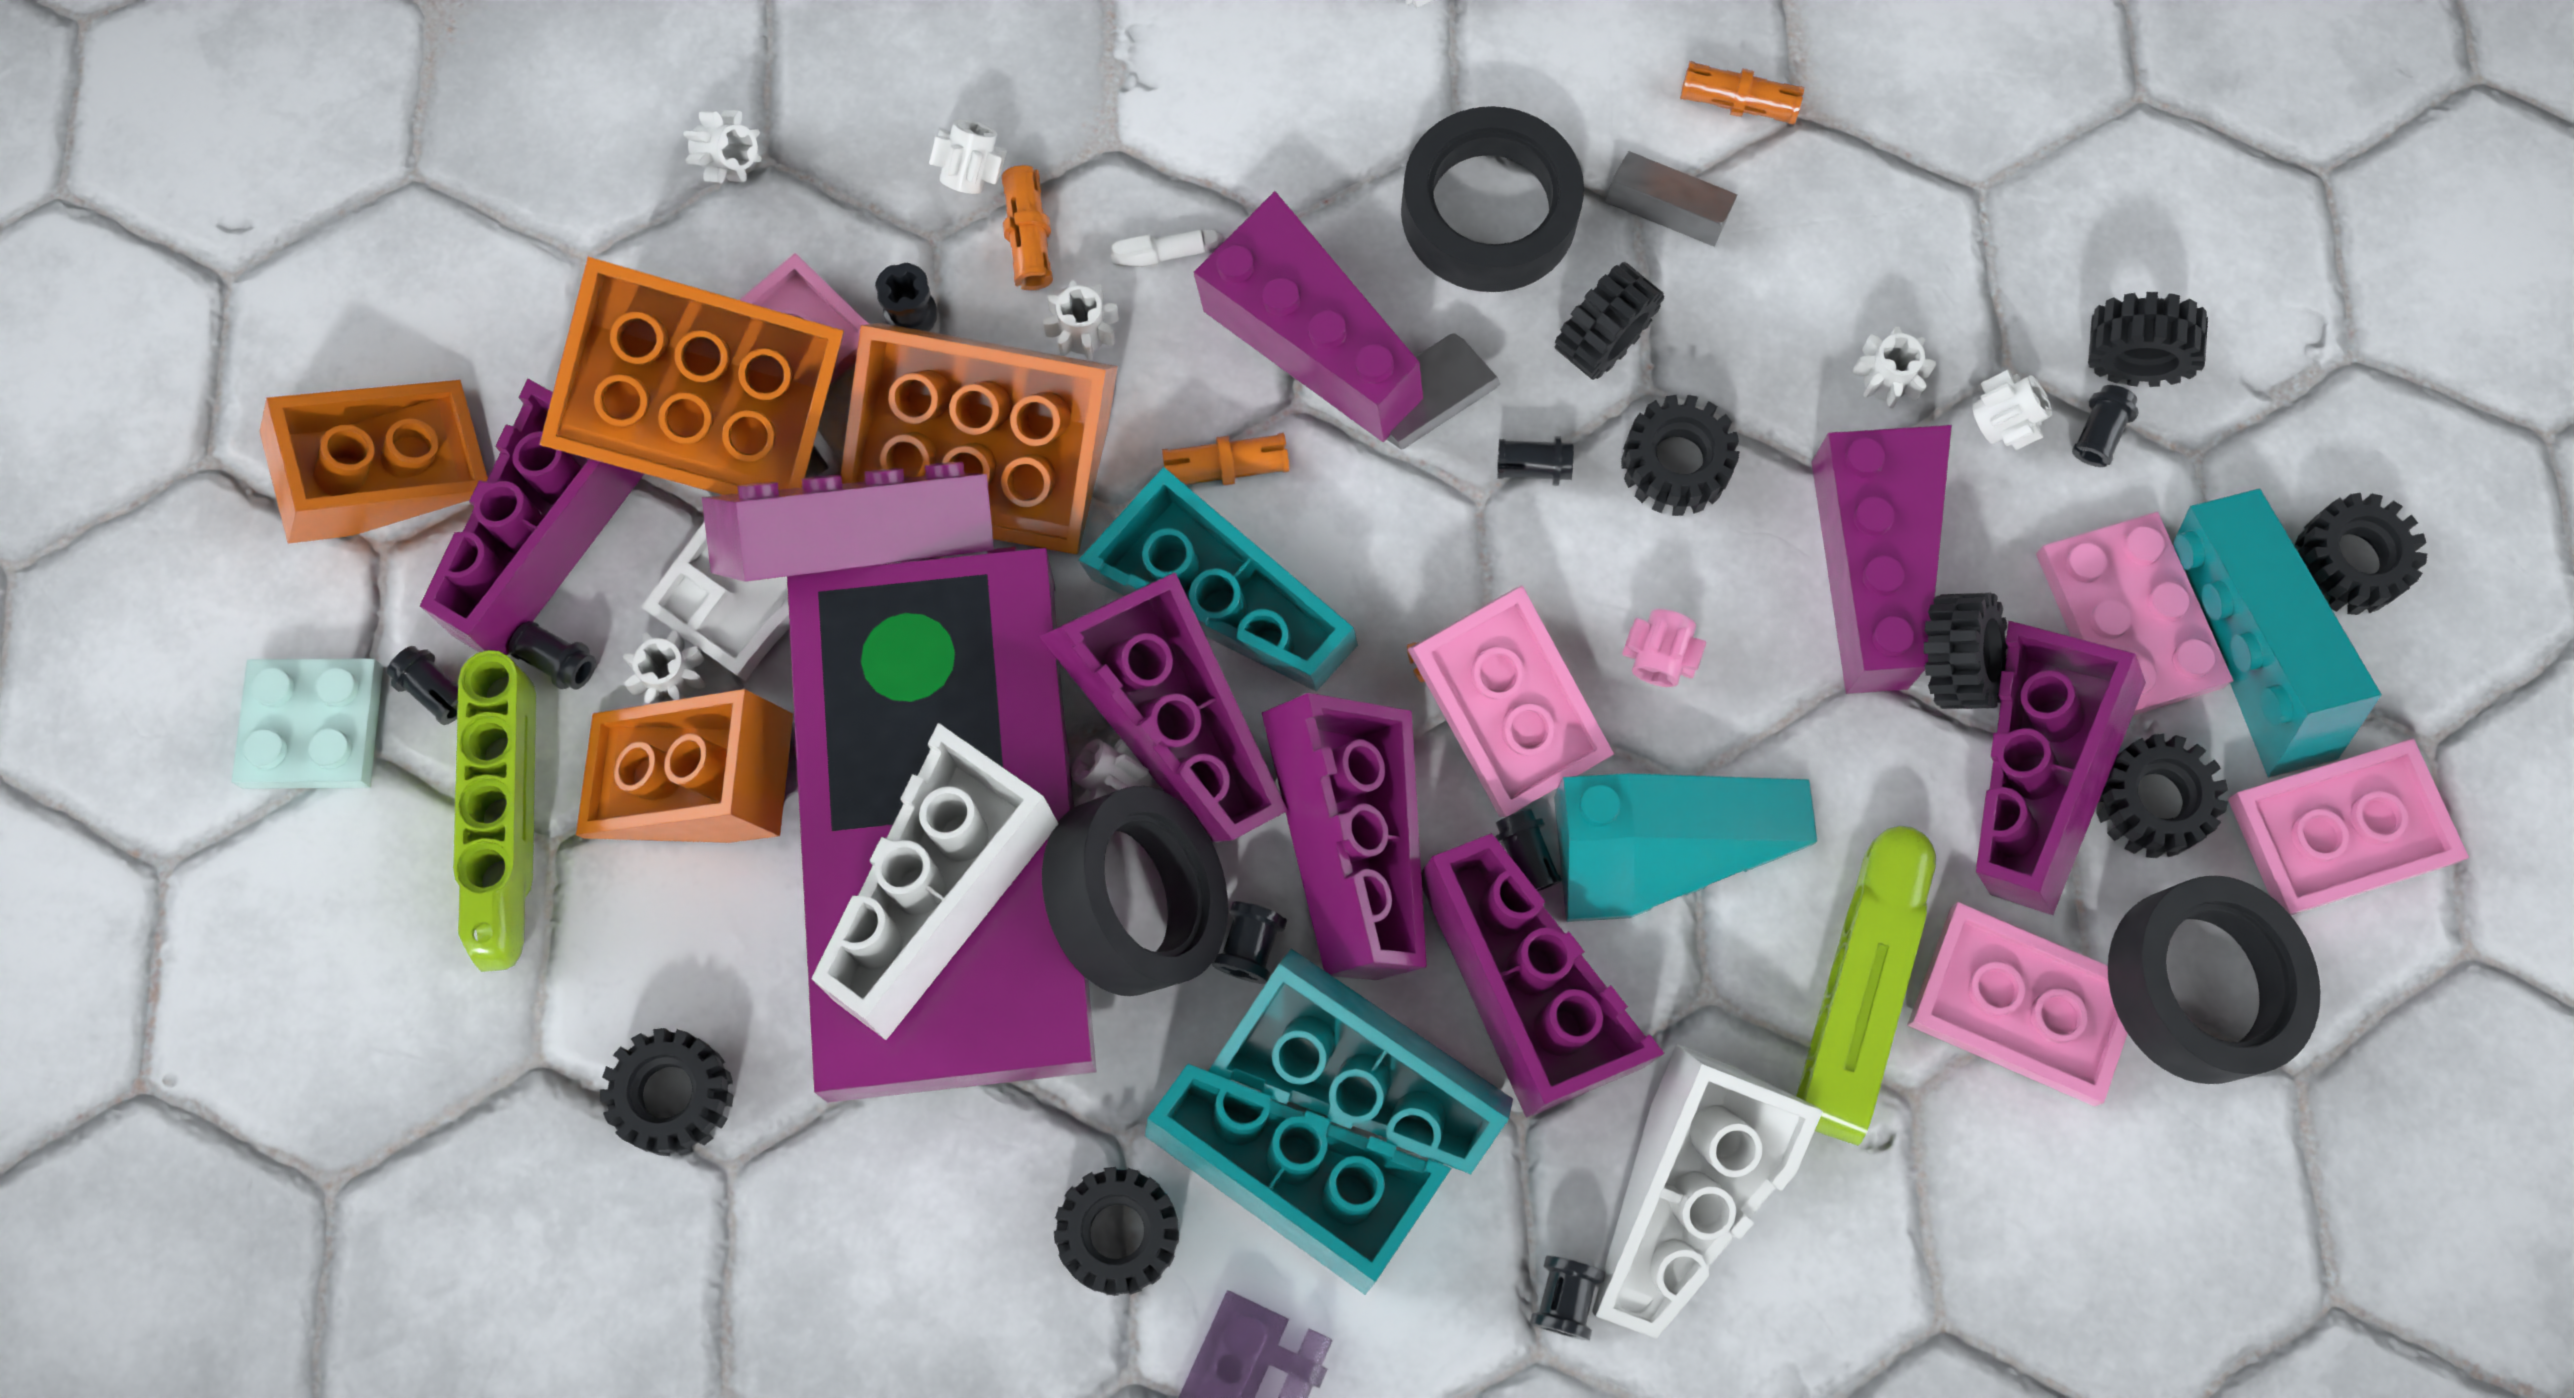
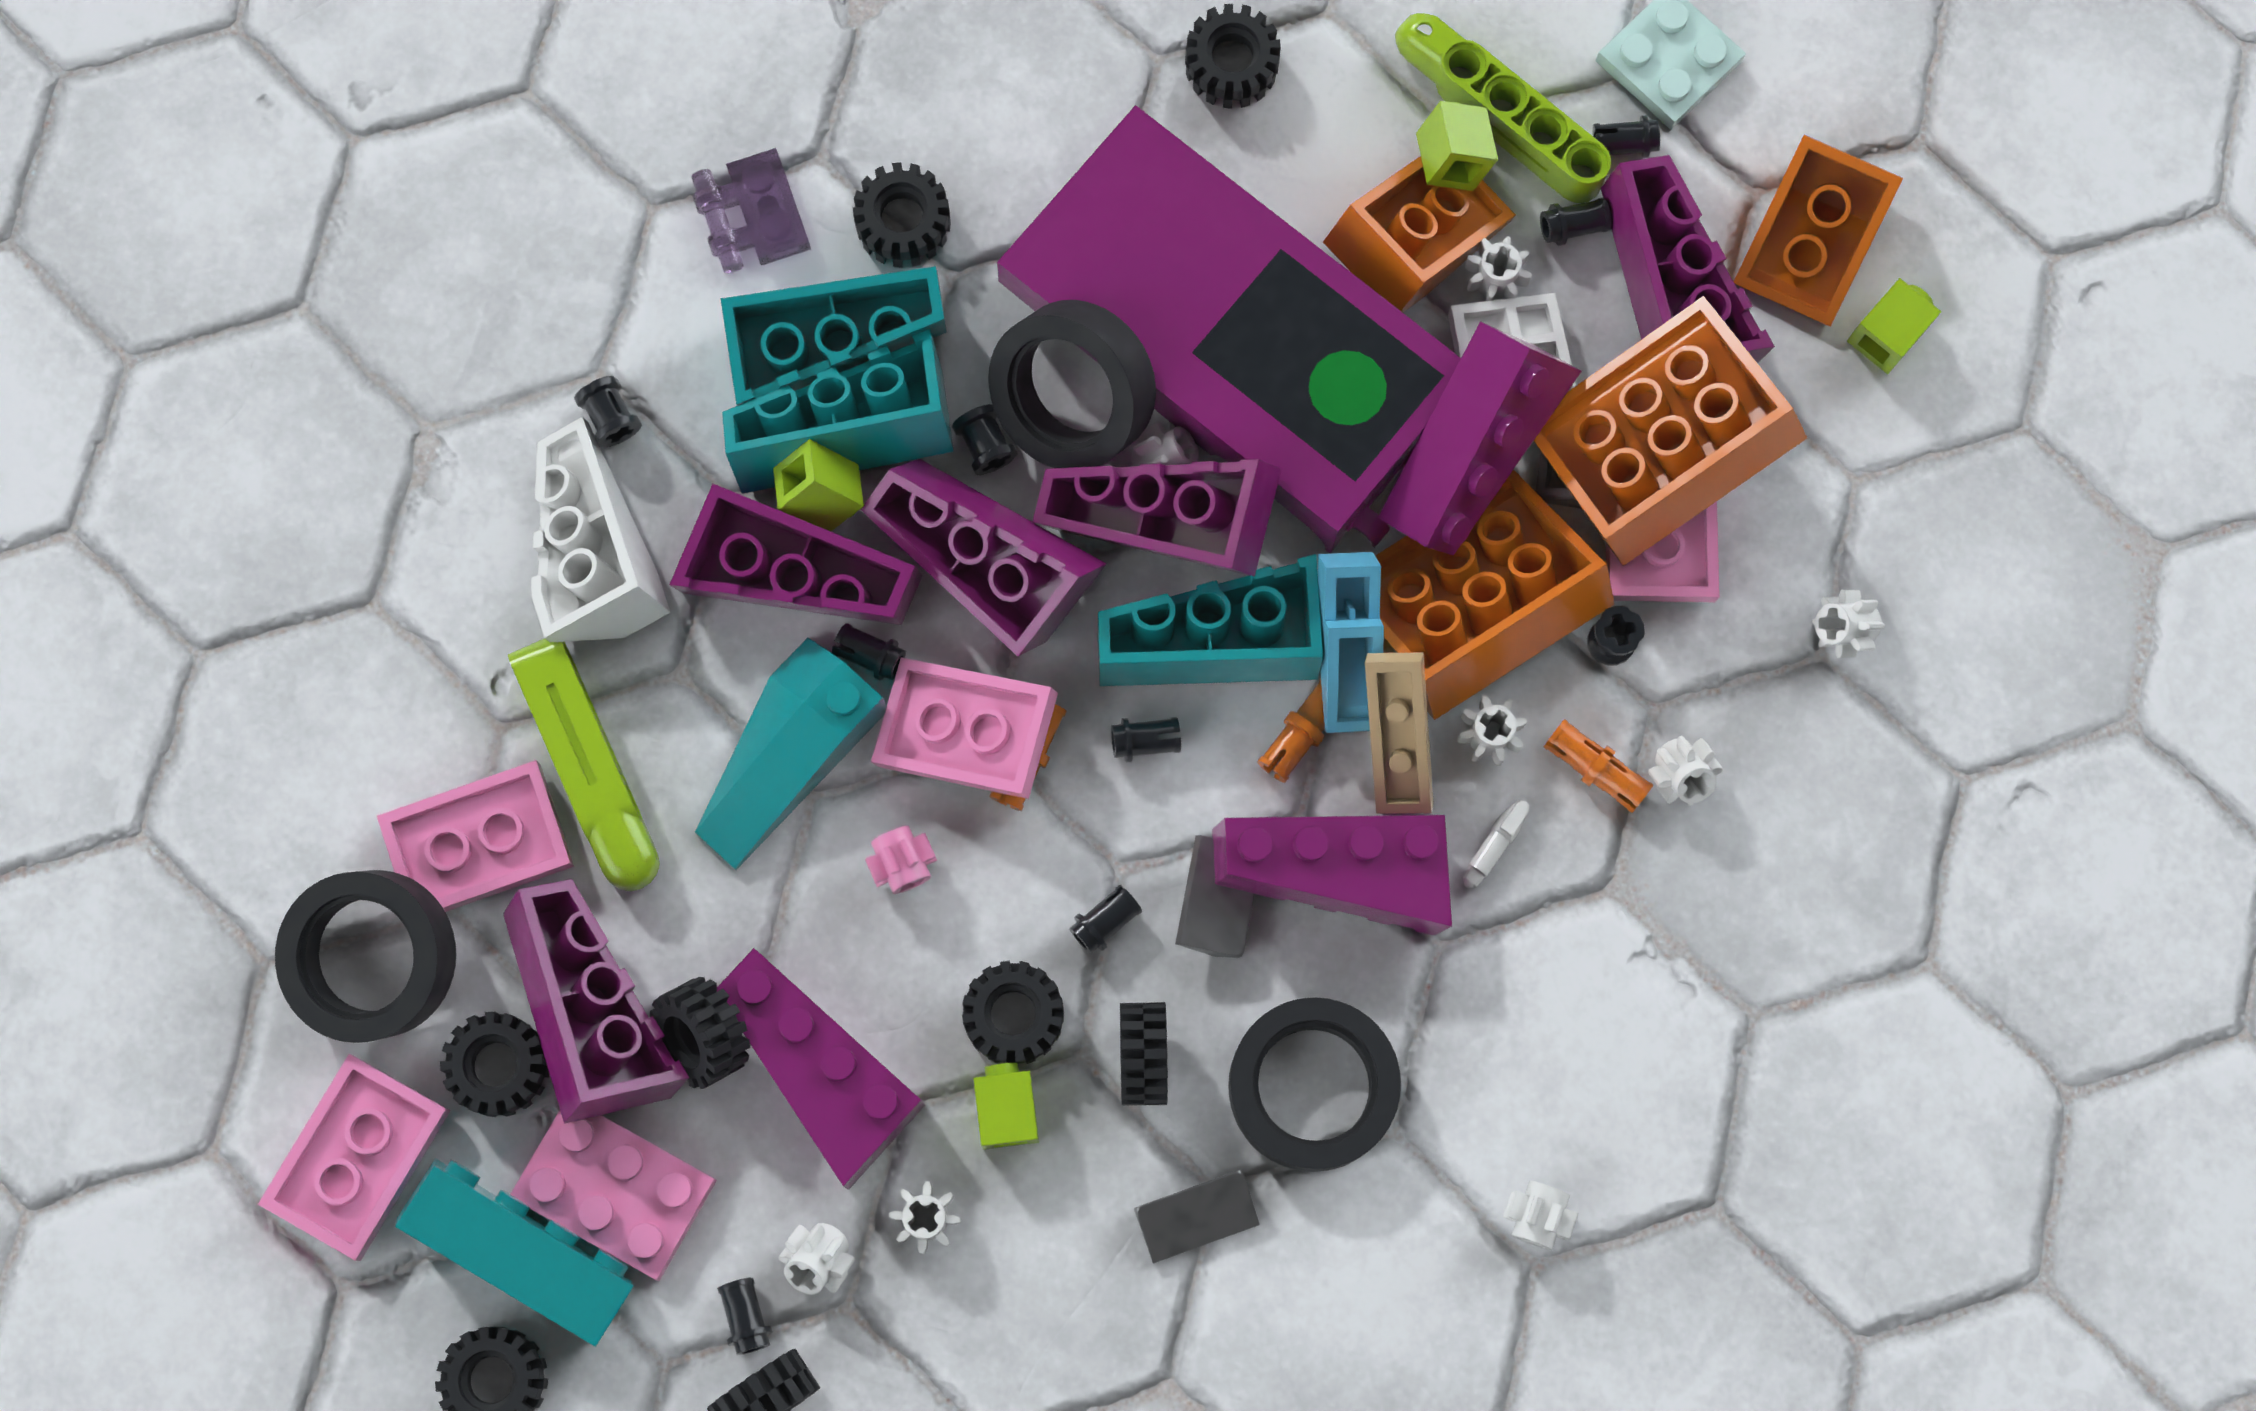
camera: 135 degrees right, 5 degrees up
(412, 327) = (1894, 325): none -> lime brick
(575, 802) = (1456, 145): none -> lime brick
(932, 880) = (1188, 279): white wedge -> none
(1119, 462) = (1349, 631): none -> medium azure slope
(1160, 364) = (1399, 732): none -> tan plate
(1362, 568) = (1142, 739): none -> black pin
(1446, 1020) = (818, 486): none -> lime brick
(1742, 92) = (1222, 1349): orange pin -> none
(1756, 386) = (1005, 1107): none -> lime brick

